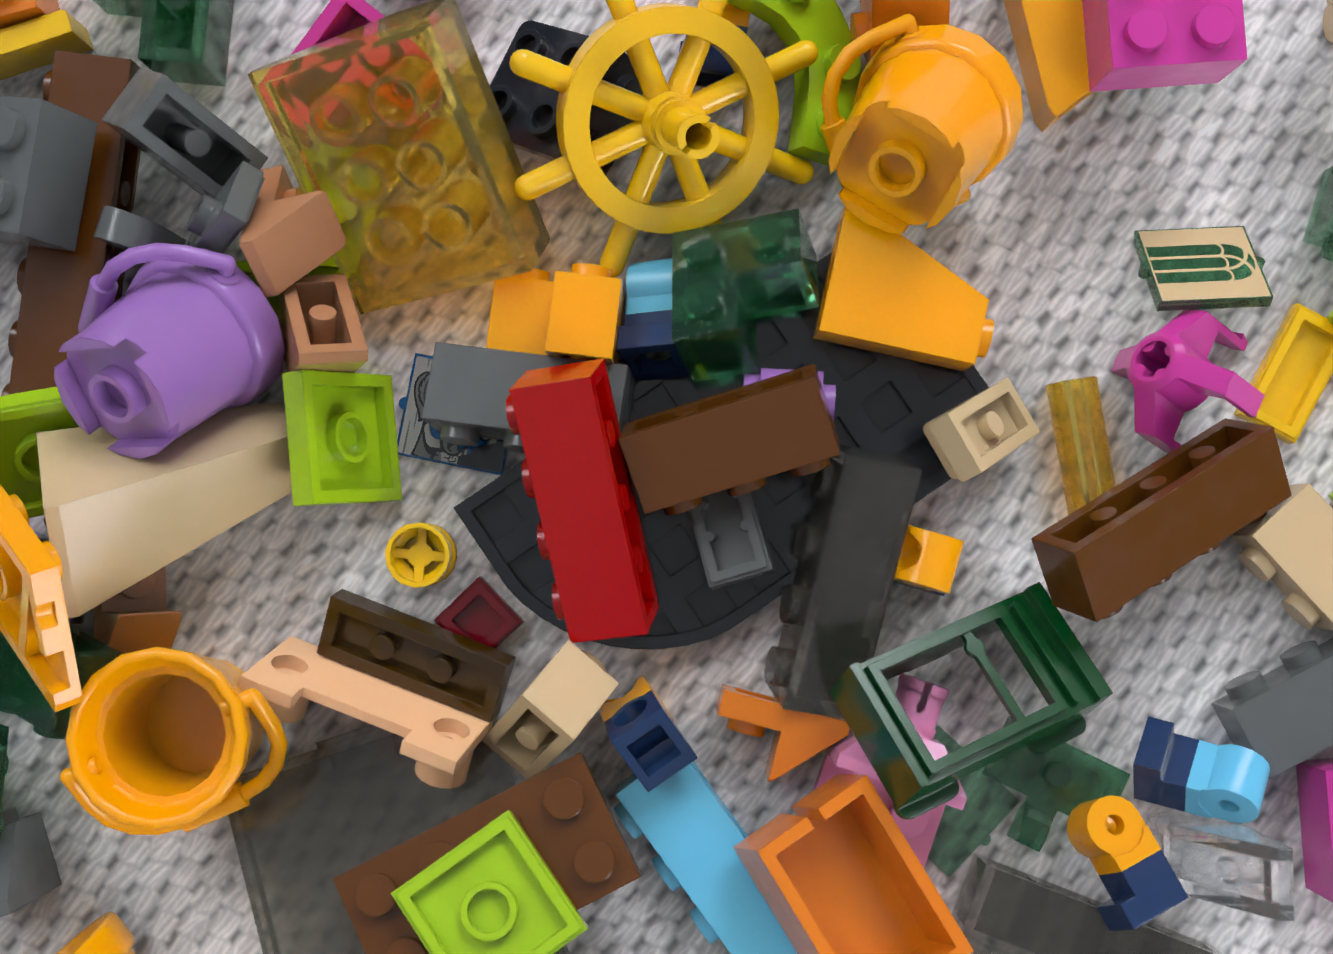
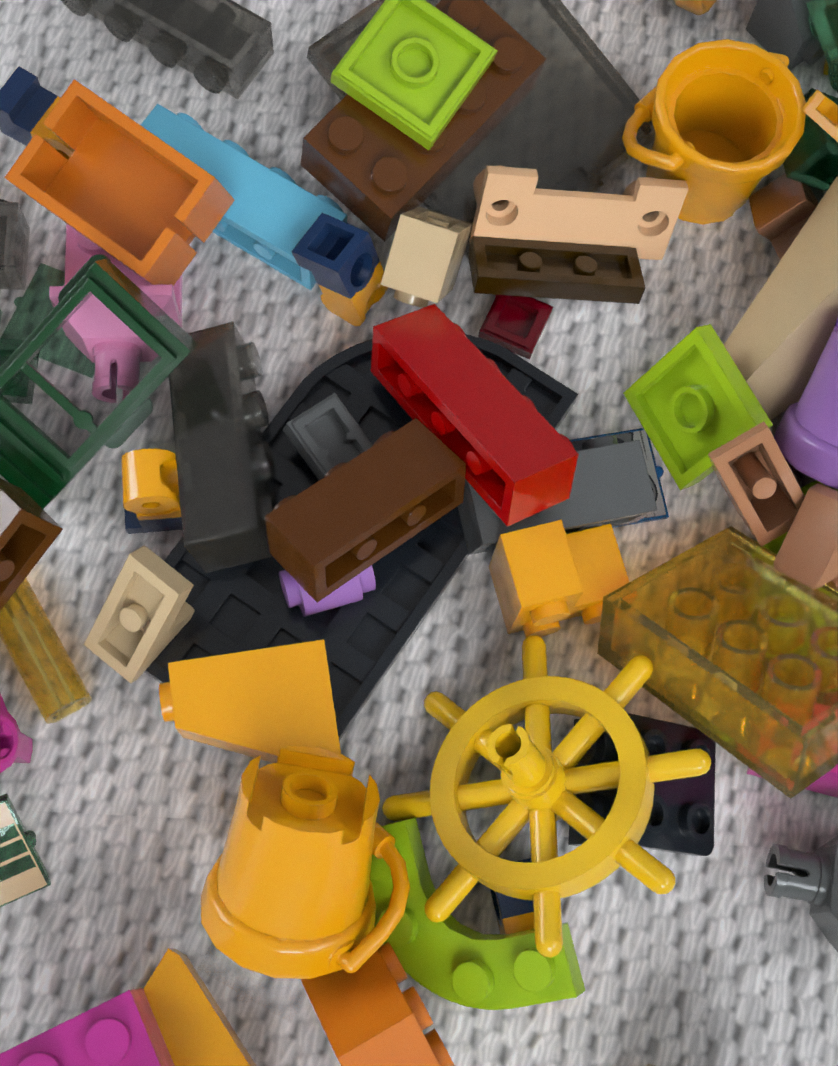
camera: 150 degrees right, 15 degrees down
(409, 554) = (592, 338): yellow wheel -> none
(649, 322) = (473, 615): dark blue leg -> none
(731, 277) = (426, 659): clear green brick -> none
(796, 734) = (256, 320): orange slope -> none

